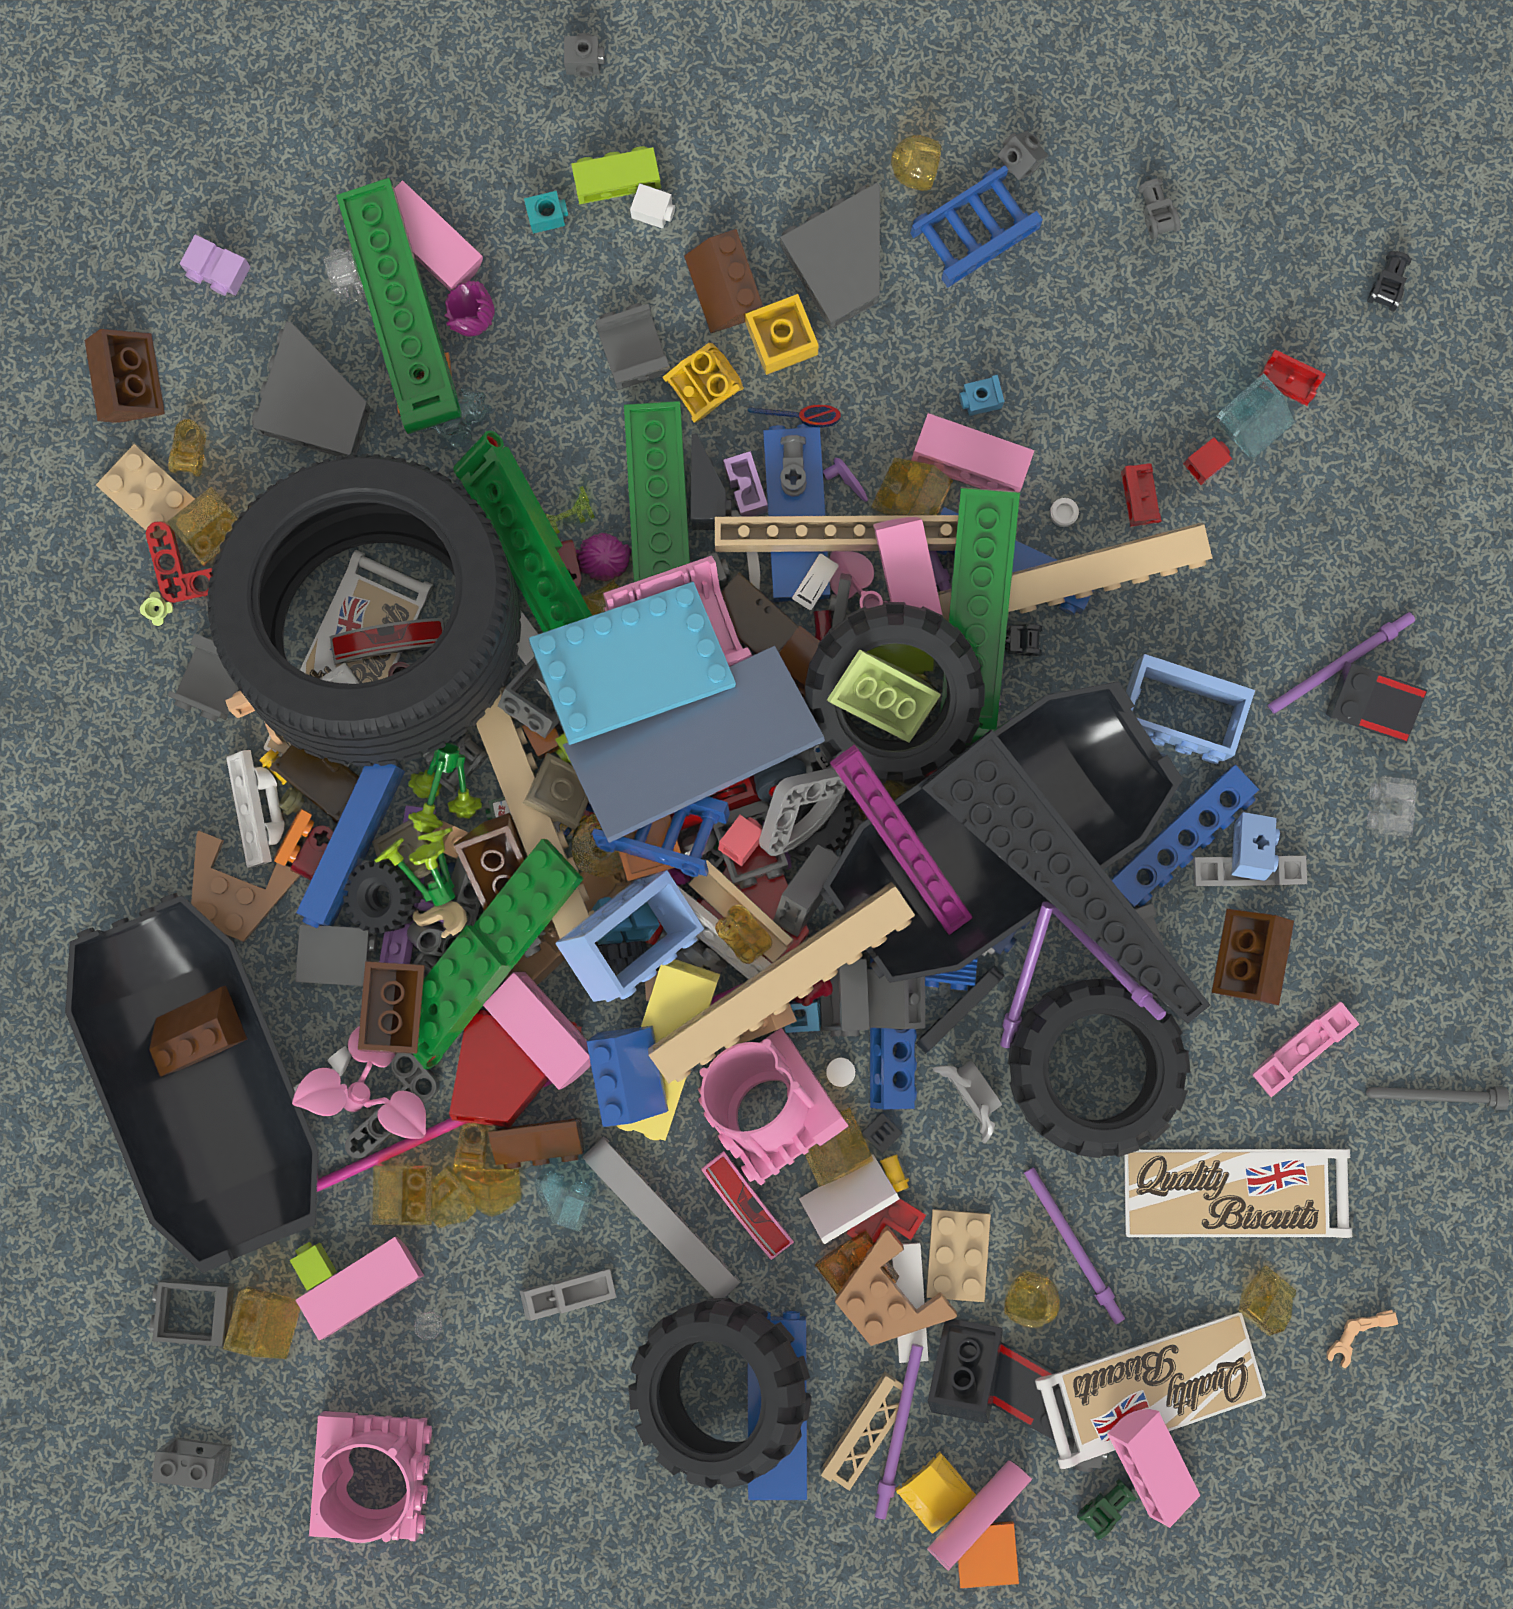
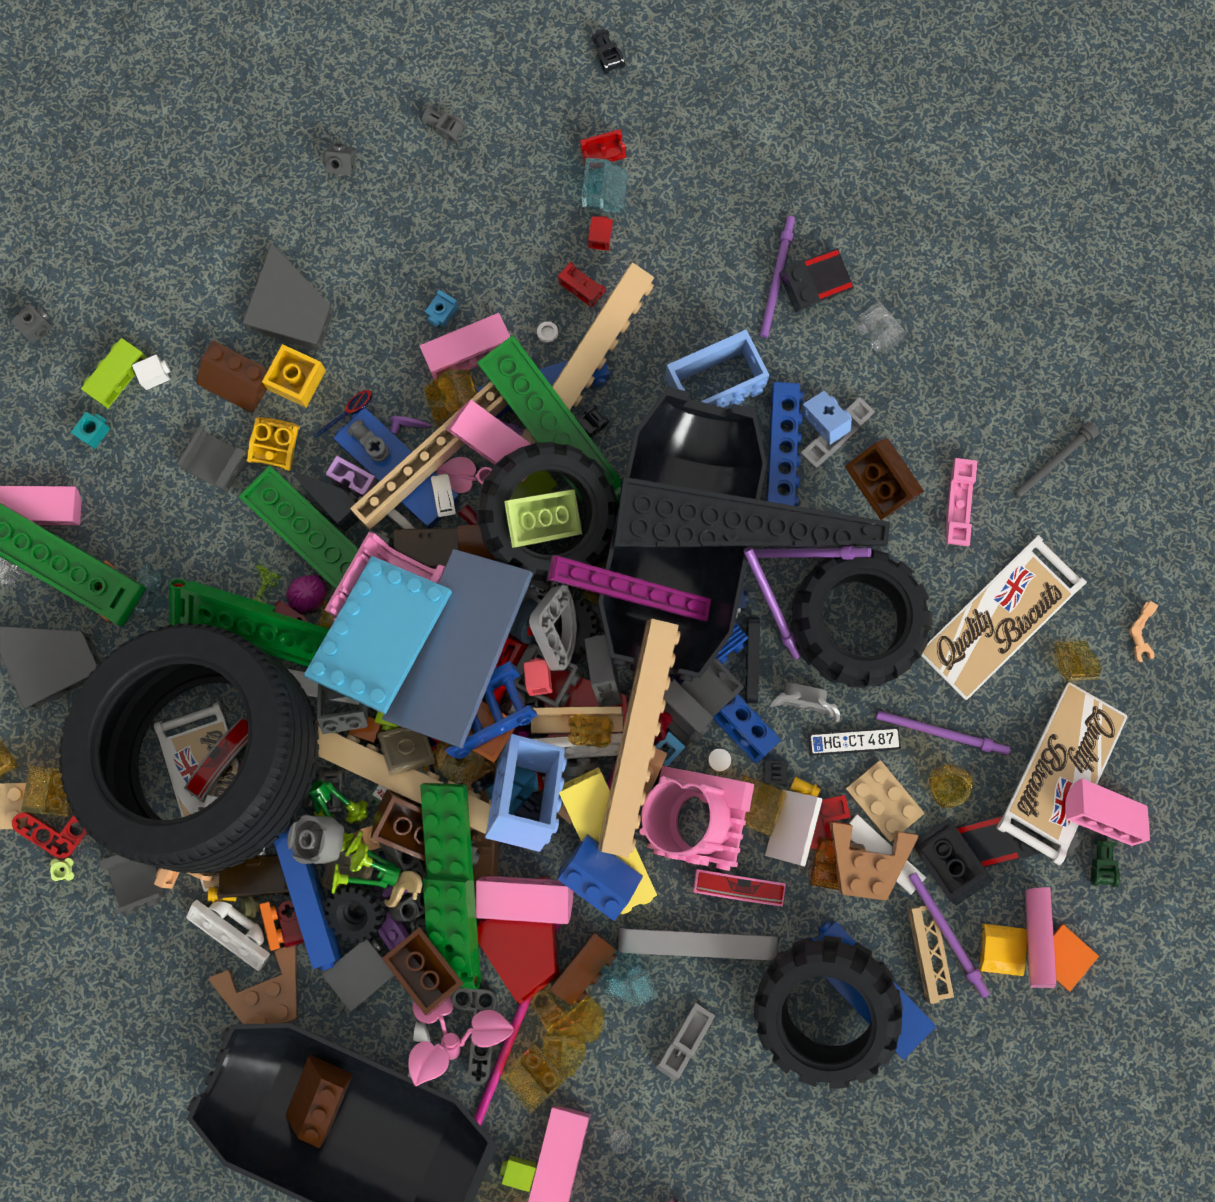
camera: 45 degrees left, 5 degrees down
(403, 799) = (316, 839): none -> light grey brick
(469, 309) = (95, 523): magenta hair -> none
(602, 889) = (483, 782): none -> black axle
(839, 602) = (467, 493): dark grey plate -> none
(916, 161) = (283, 215): clear yellow piece -> none
(983, 1174) = (854, 741): none -> tile
(1000, 239) = (365, 235): blue fence -> none

